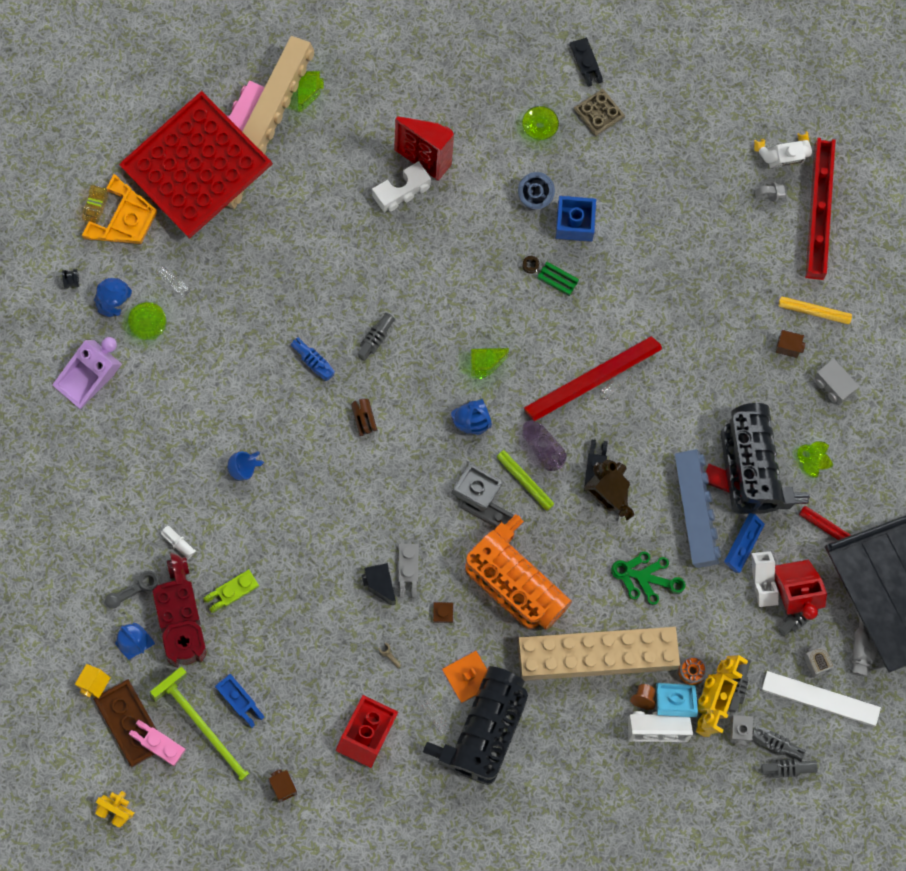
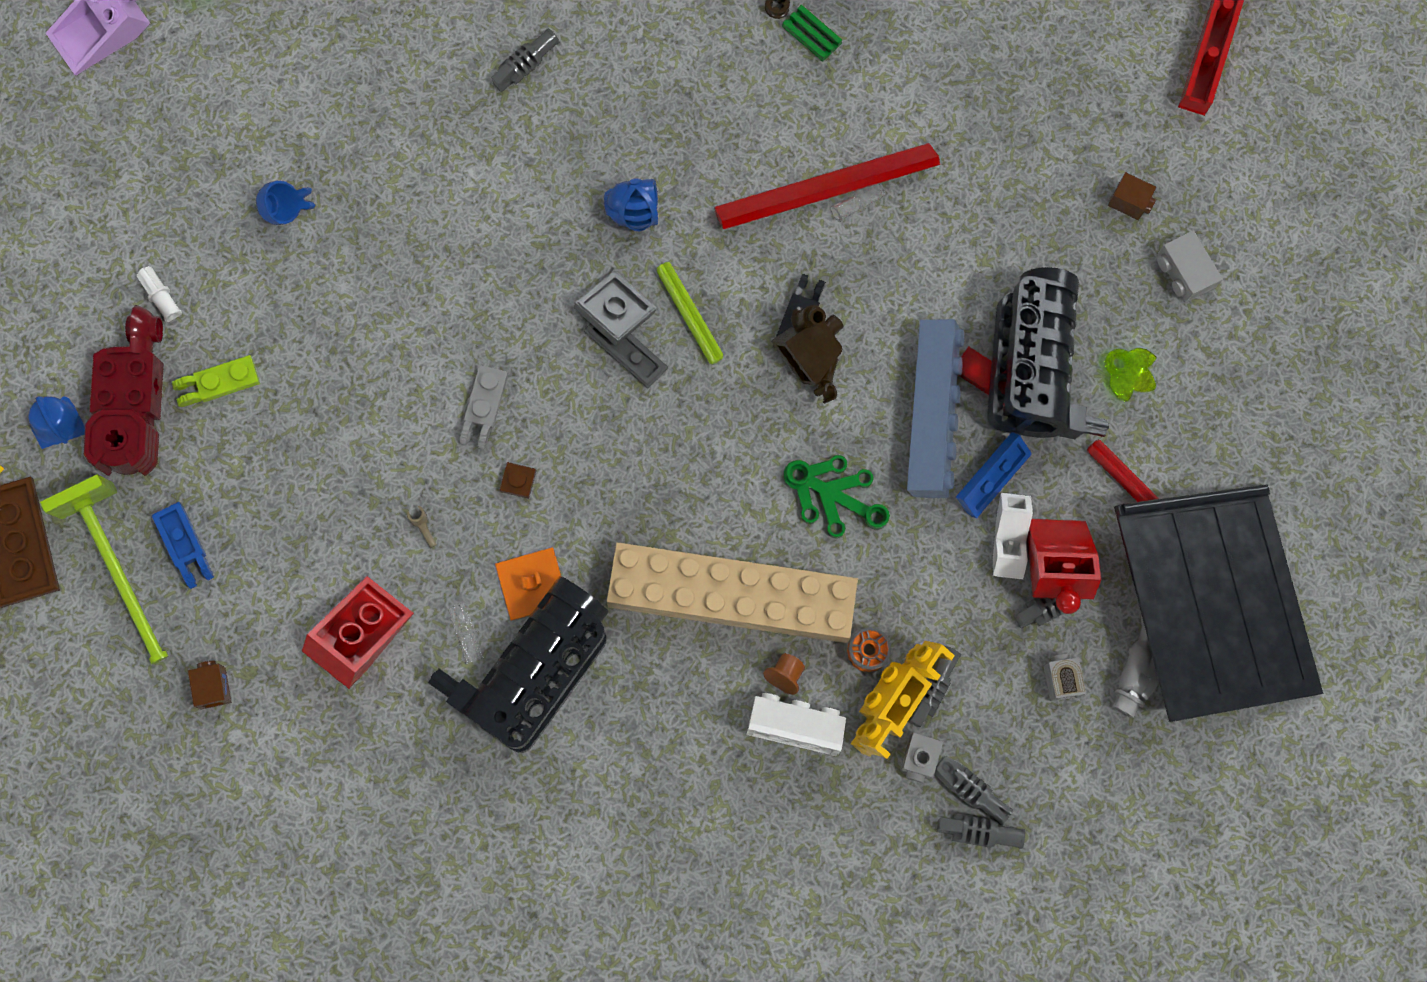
camera: 15 degrees right, 5 degrees up
(113, 600) = (43, 357): dark grey piece -> none
(159, 744) = (45, 582): bright pink hinge -> none
(313, 360) = (425, 74): blue hinge -> none
(363, 414) = (476, 170): reddish brown arm -> none
(379, 582) = (434, 415): black slope -> none
(486, 361) = (677, 127): clear neon green slope -> none
(515, 577) = (638, 452): orange piece -> none
(535, 433) = (720, 248): clear purple piece -> none
(676, 700) = (832, 689): medium azure tile -> none
(815, 310) = (1182, 156): yellow axle -> none
(821, 699) = (1055, 736): white tile -> none

